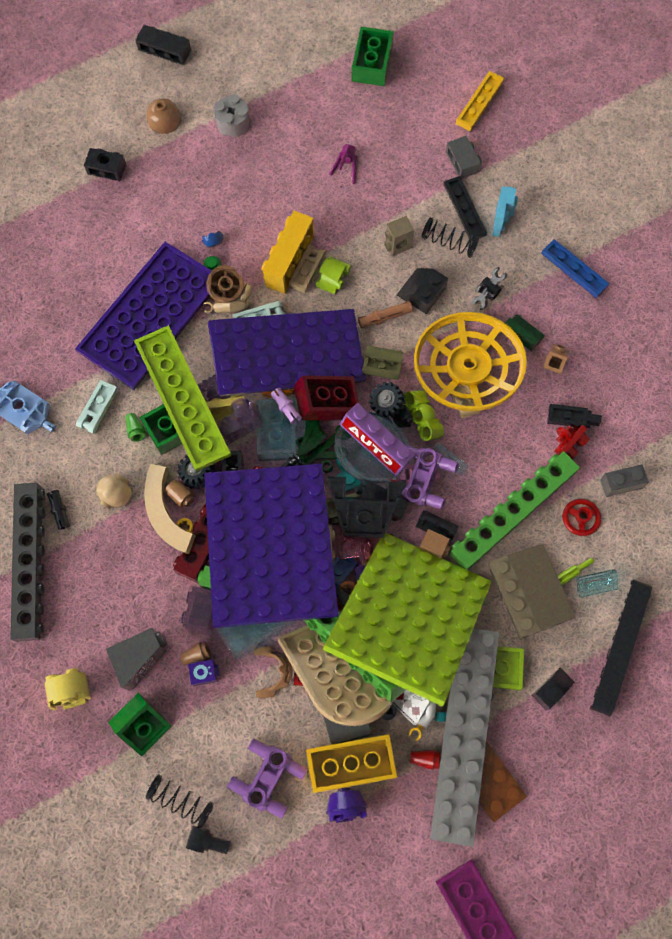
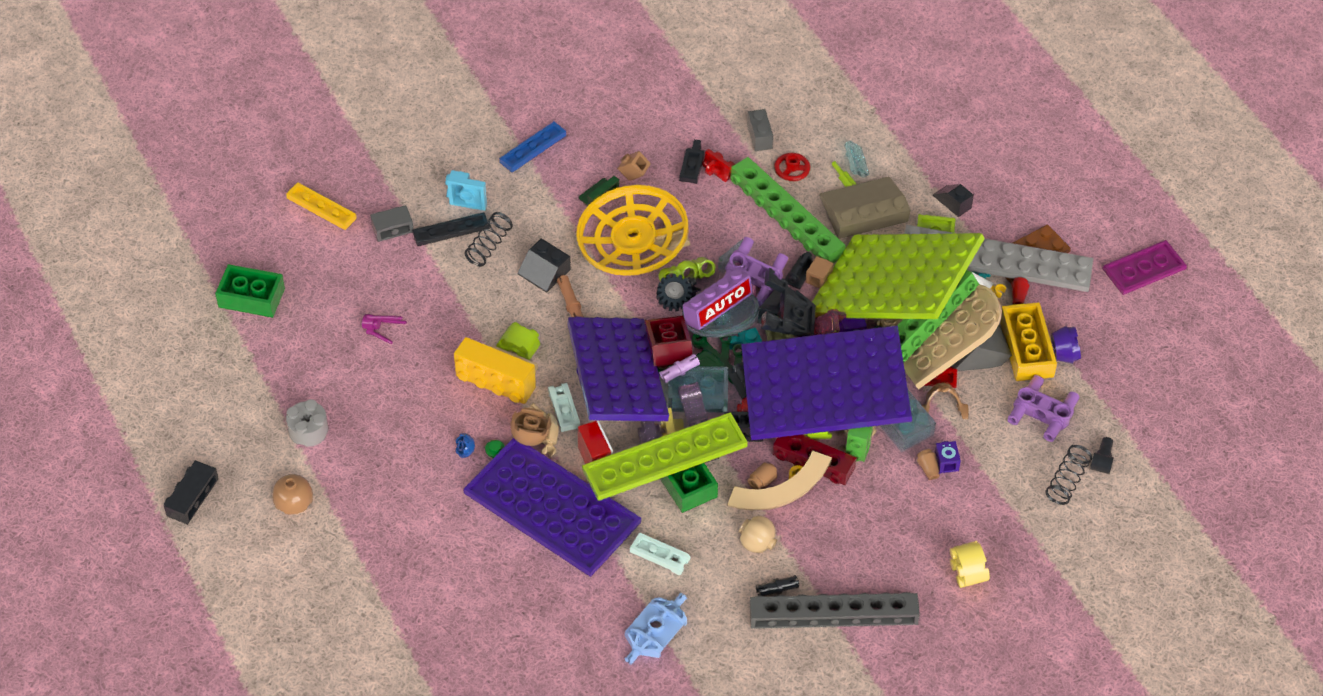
camera: 90 degrees left, 20 degrees down
(105, 164) = (356, 539): black brick -> none
(135, 429) = (686, 518): bright green cone -> none
(136, 656) = (936, 504): dark grey slope -> none
(139, 724) = (997, 509): green slope -> none
(190, 476) = (739, 463): black wheel -> none
(195, 342) = (593, 442): none -> red piece
(199, 612) = (889, 450): clear purple brick -> none
(382, 362) = (627, 301): olive bracket -> none
(399, 236) = (486, 276): dark tan brick -> none
(489, 288) = (554, 208): black pin -> none
(621, 649) = (915, 147): black beam -> none

